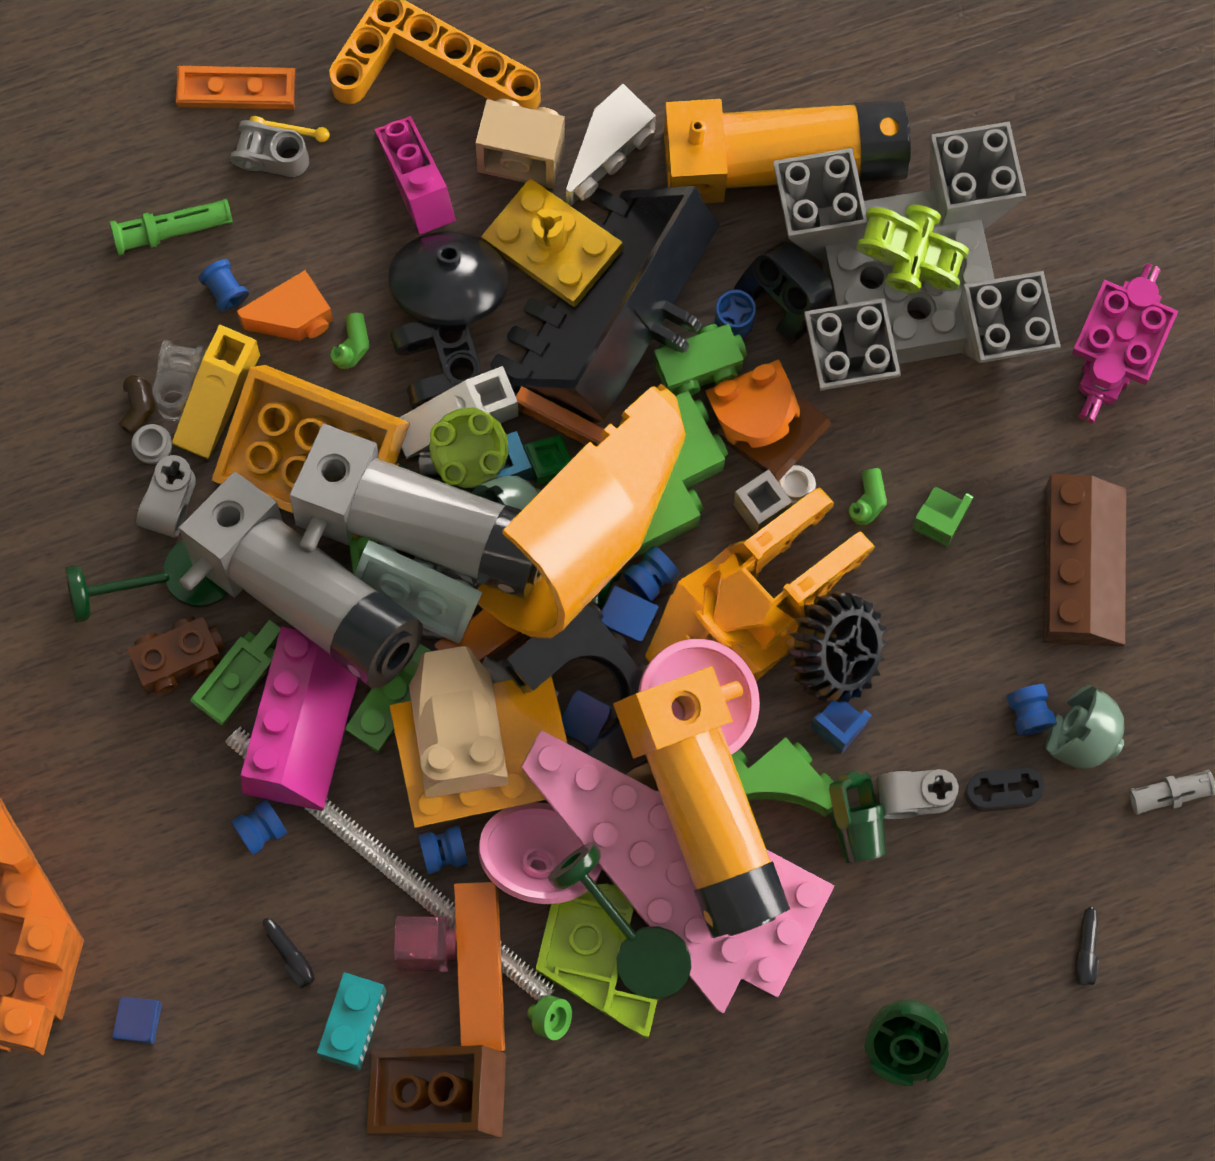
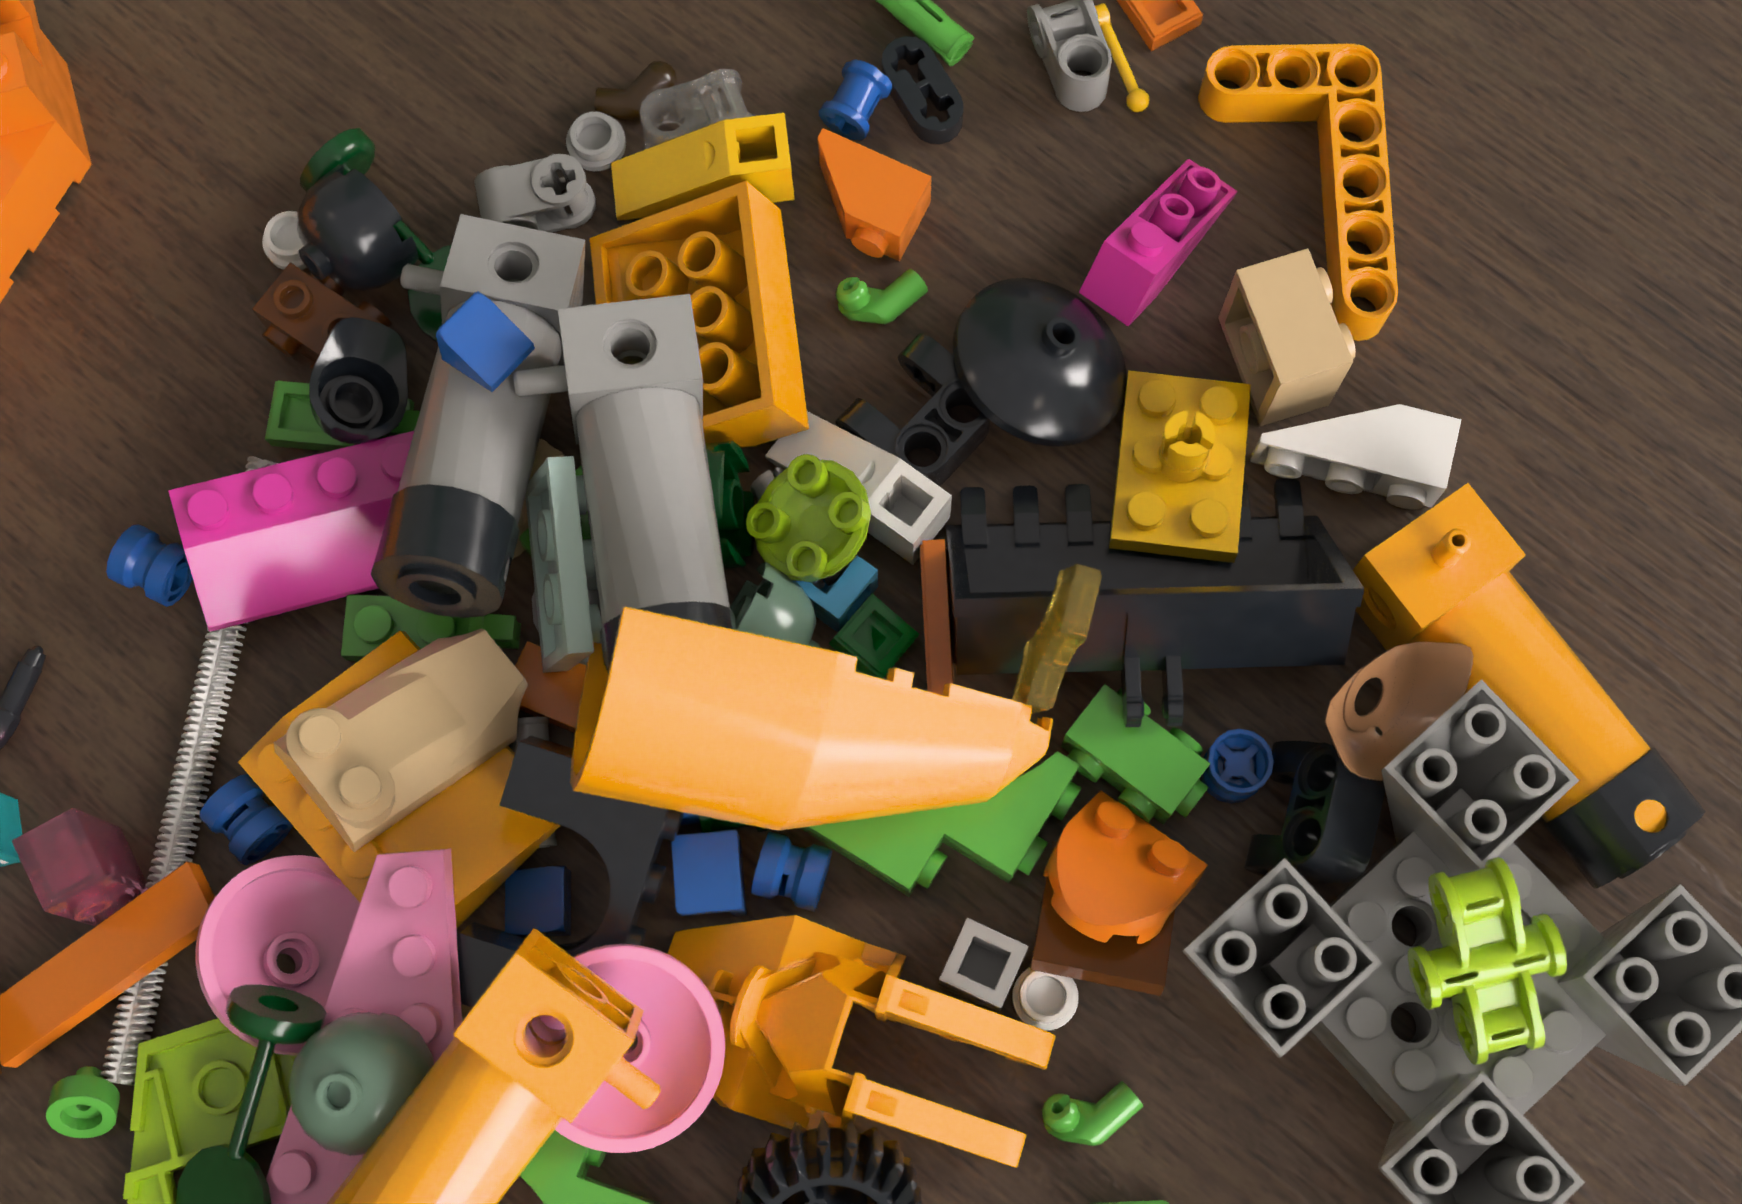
camera: 65 degrees right, 0 degrees up
(102, 648) = (282, 240): none -> white plate
(132, 602) = (351, 232): none -> black cylinder
(234, 644) = (359, 381): none -> black piece
(239, 237) = (932, 83): none -> black beam
(276, 550) = (483, 342): none -> blue slope
(627, 345) = (1057, 638): none -> clear yellow tile
(637, 839) = (356, 1079): none -> sand green cylinder
(758, 199) = (1417, 688): none -> medium nougat piece

